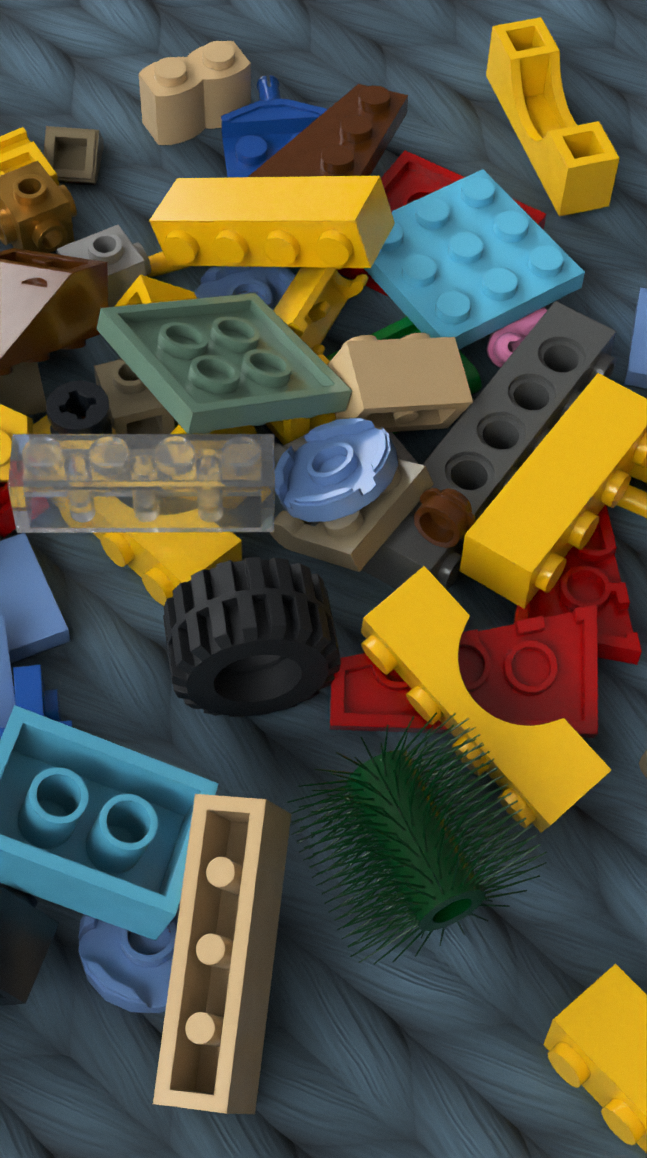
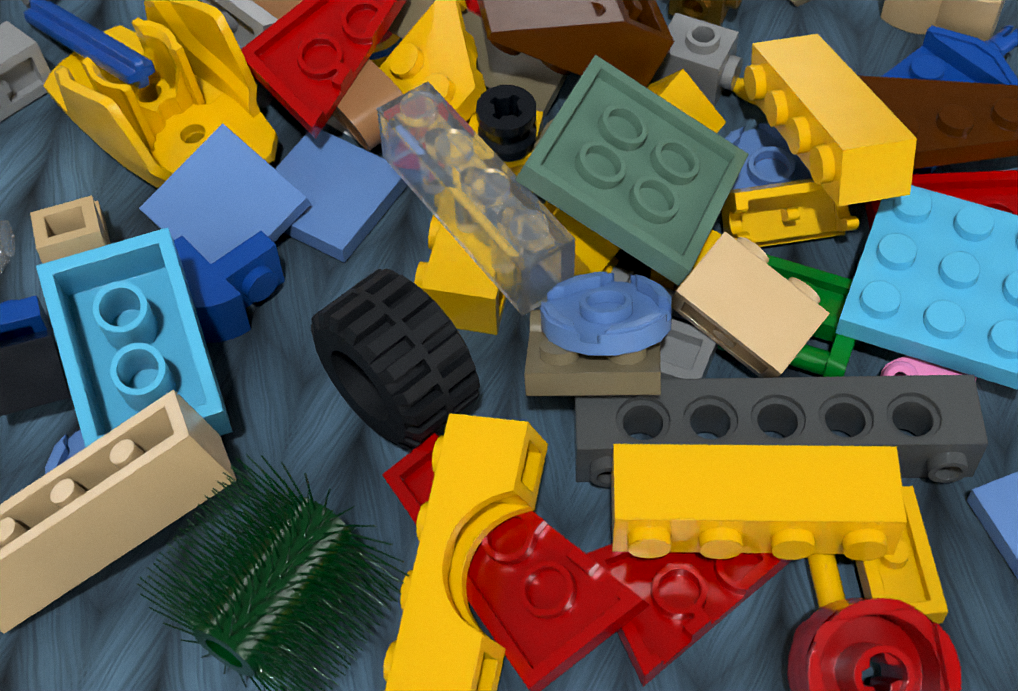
camera: 60 degrees right, 0 degrees up
(443, 517) = (629, 419): reddish brown plate -> none

